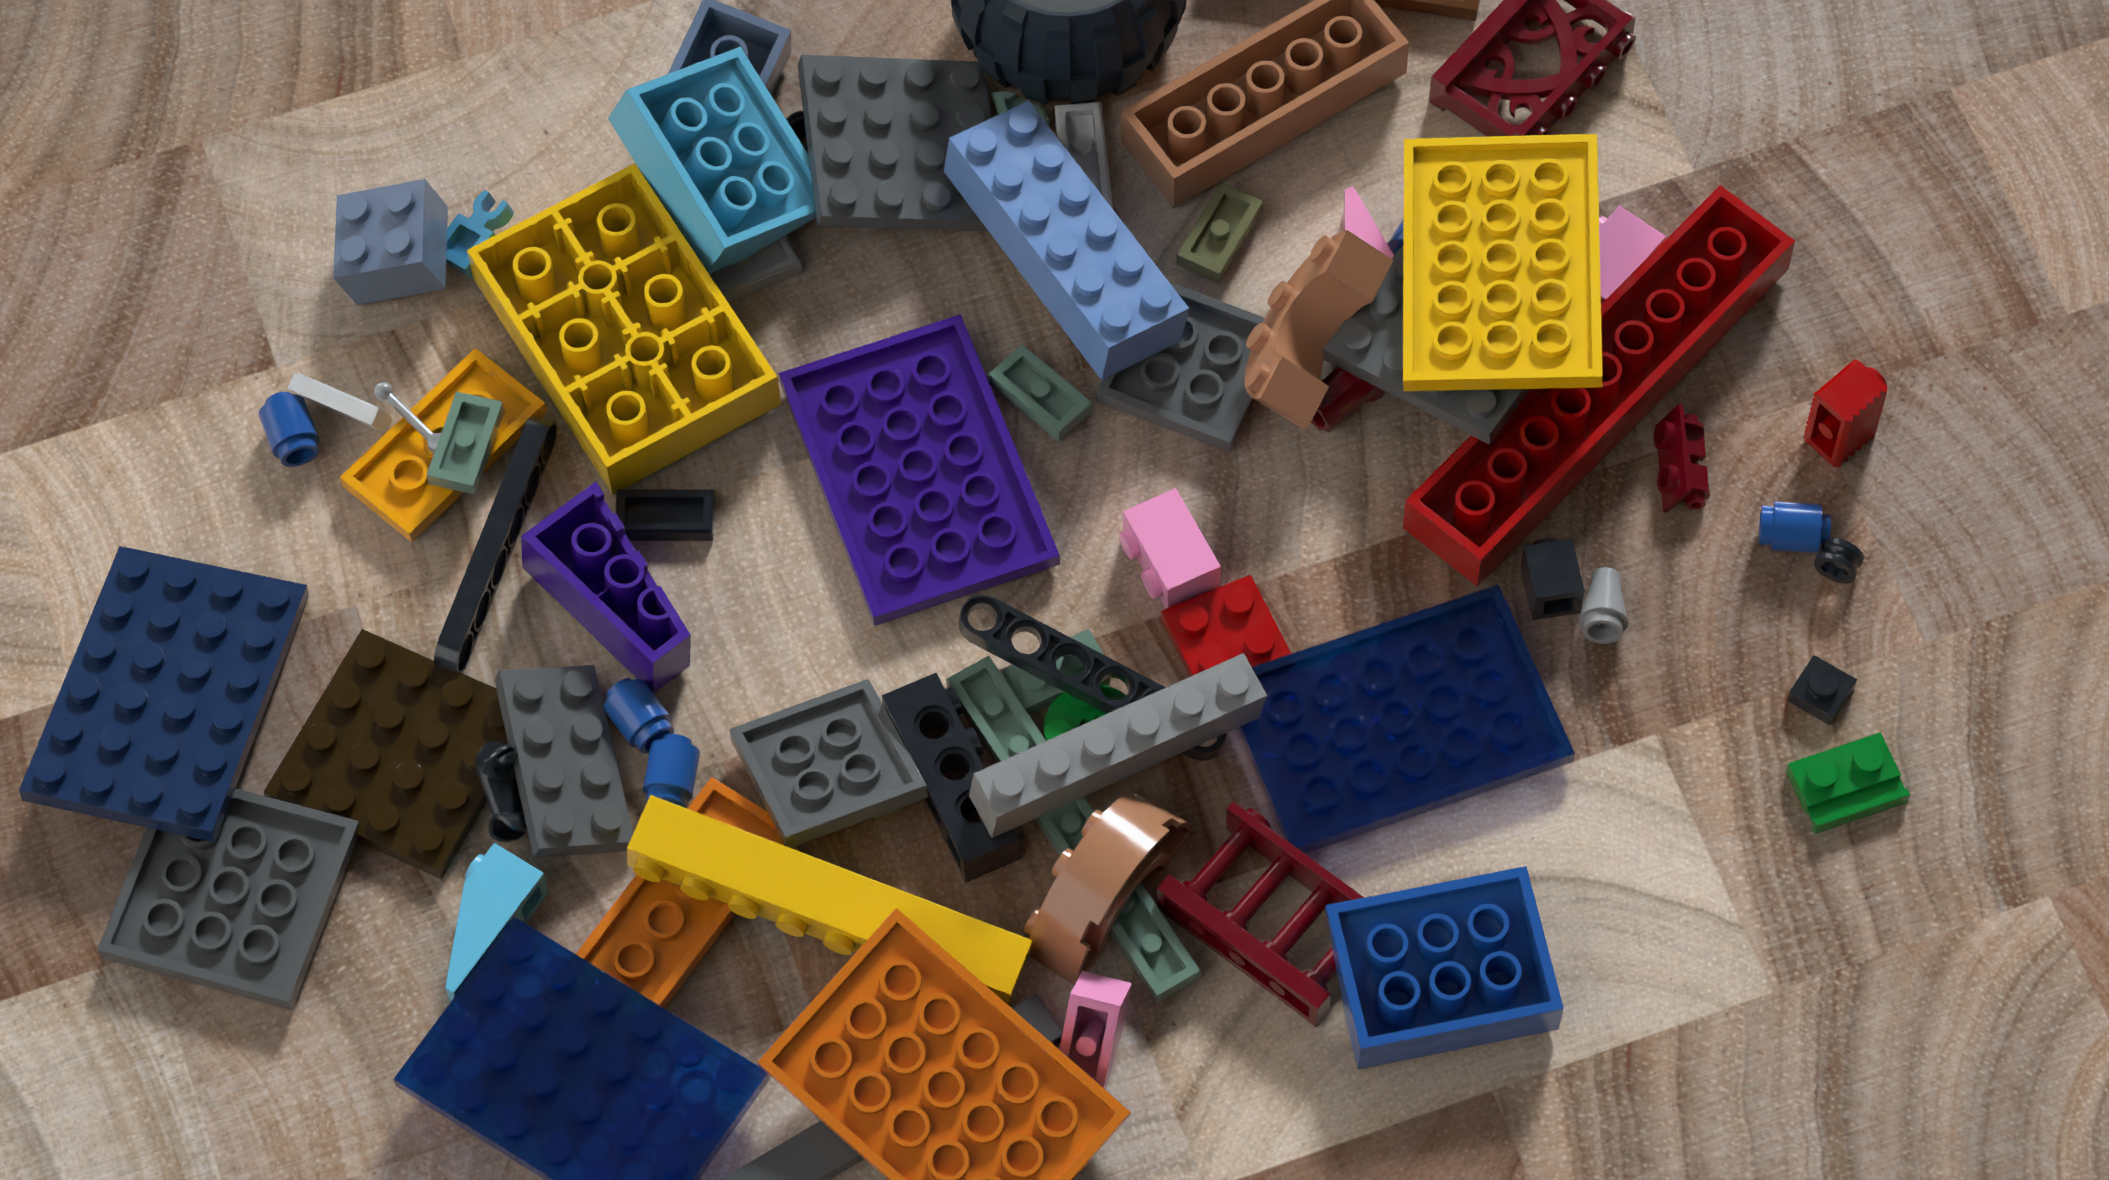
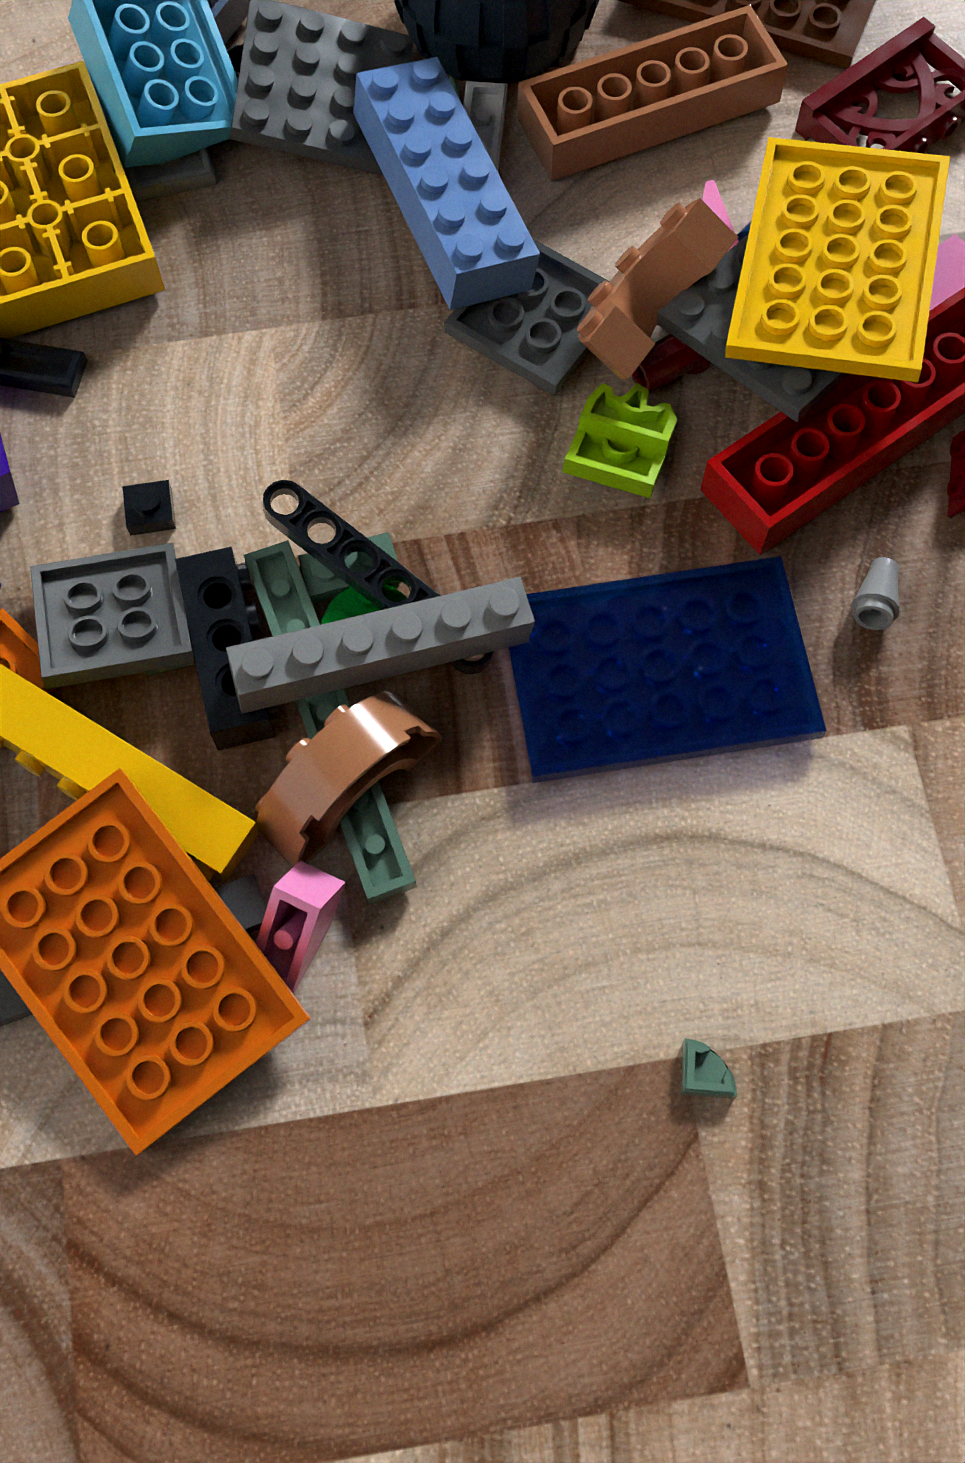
camera: 10 degrees right, 5 degrees up
(829, 646) = (149, 507): none -> black plate
(918, 469) = (269, 366): dark purple plate -> none
(1040, 393) = (395, 316): sand green plate -> none
(1169, 549) = (480, 473): bright pink brick -> none
(1219, 232) = (587, 205): olive plate -> none
(1224, 626) = (514, 548): red plate -> none
(1227, 931) = (484, 882): dark red fence -> none
(1311, 489) = (621, 440): none -> lime plate
(1443, 967) = (657, 924): blue slope -> none
(1516, 1099) = (705, 1072): none -> sand green tile
(1552, 578) = (833, 559): black brick -> none

